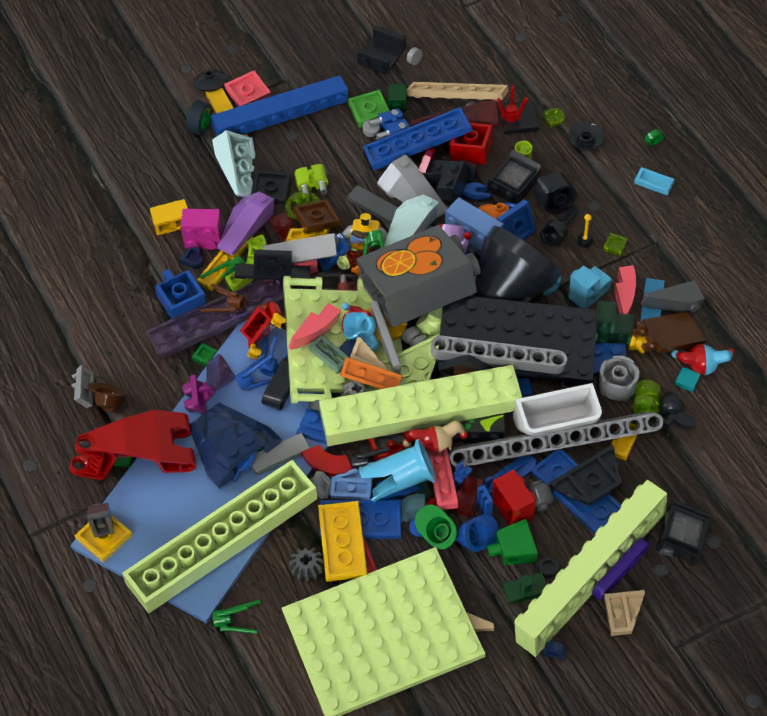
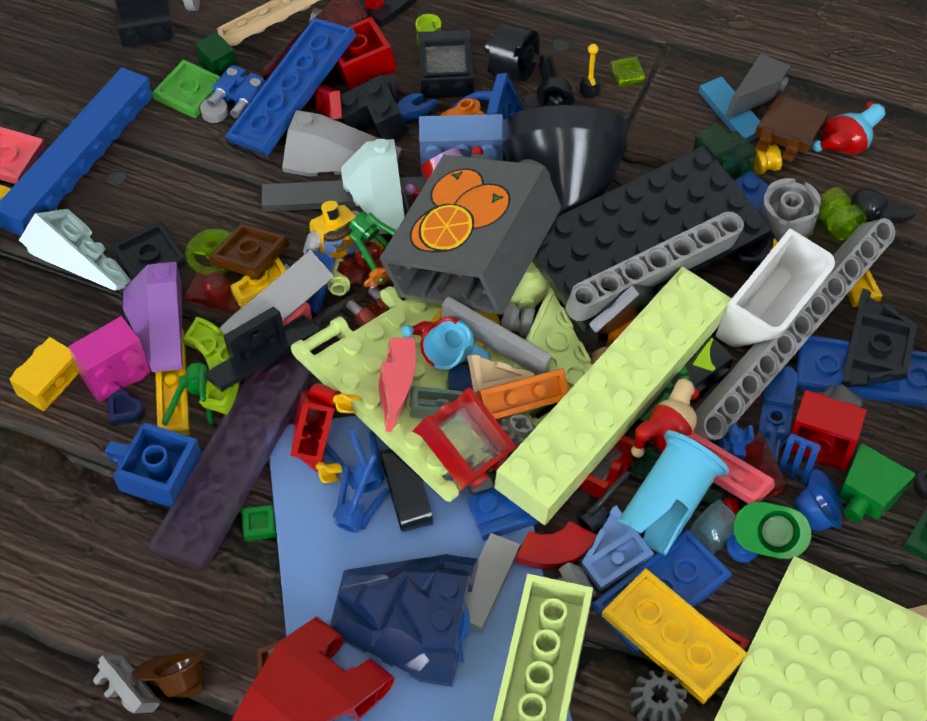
camera: 40 degrees left, 0 degrees up
(200, 394) = (294, 573): magenta hips -> none
(219, 373) = (307, 535): clear purple slope -> none
(234, 300) = (247, 420): reddish brown plant -> none
(312, 177) = (196, 210): lime piece -> none
(319, 376) = (466, 439): none -> red window
(588, 286) = (652, 132): medium azure brick -> none
(625, 289) = (692, 108): coral slope -> none
(687, 379) = (852, 167): teal tile -> none

